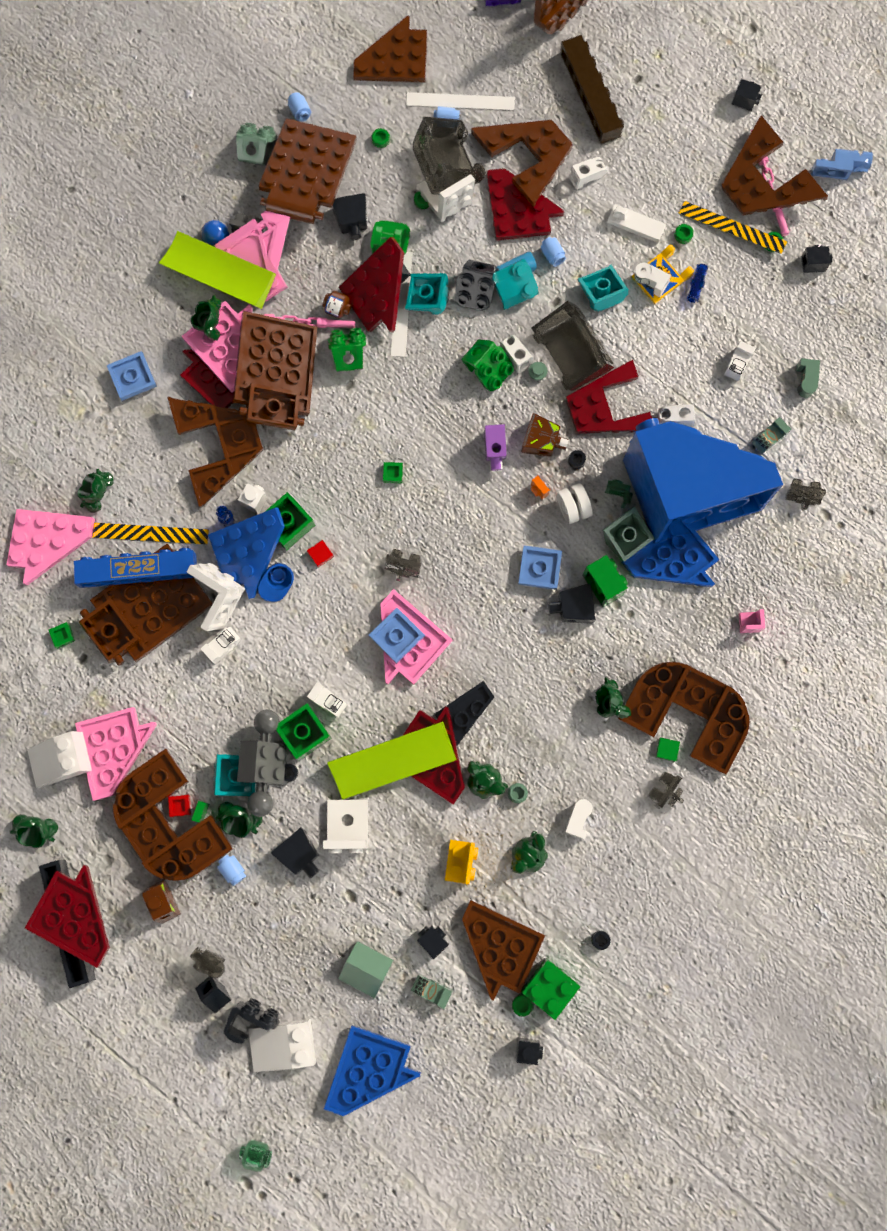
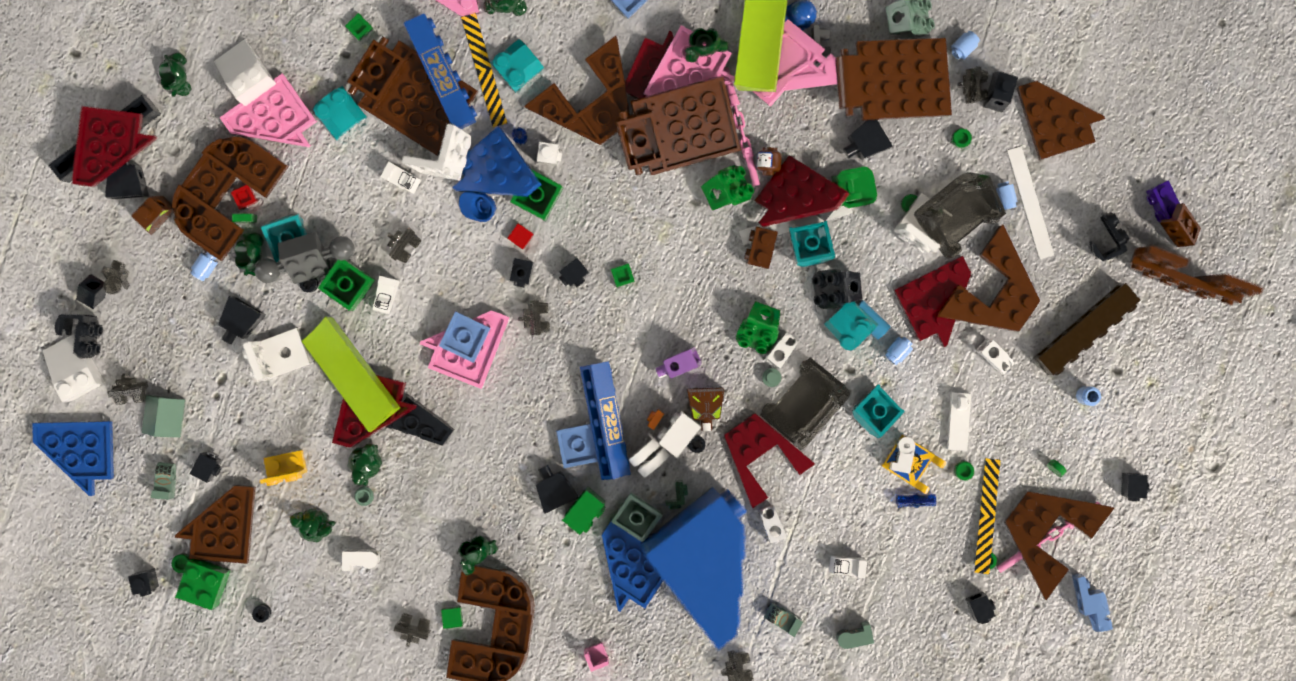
camera: 75 degrees right, 10 degrees up
(120, 918) = (126, 183): none -> black torso
(134, 683) = (338, 112): none -> teal slope
(158, 500) = (517, 65): none -> teal slope
(282, 668) = (398, 251): none -> clear smoke hips
(323, 992) = (128, 386): none -> clear smoke hips
(337, 111) = (972, 85): none -> clear smoke hips
(351, 89) = (1000, 89): none -> black torso
(354, 562) = (521, 272): none -> black brick
(374, 514) = (573, 273): none -> black brick
(413, 339) = (761, 247): none -> reddish brown bracket
(516, 36) = (1119, 236): none -> black piece
(525, 533) = (605, 420): none -> blue brick
(560, 467) = (679, 433): none -> white brick
(652, 105) = (1093, 393): none -> light blue brick
(708, 154) = (1056, 467): none -> green tile

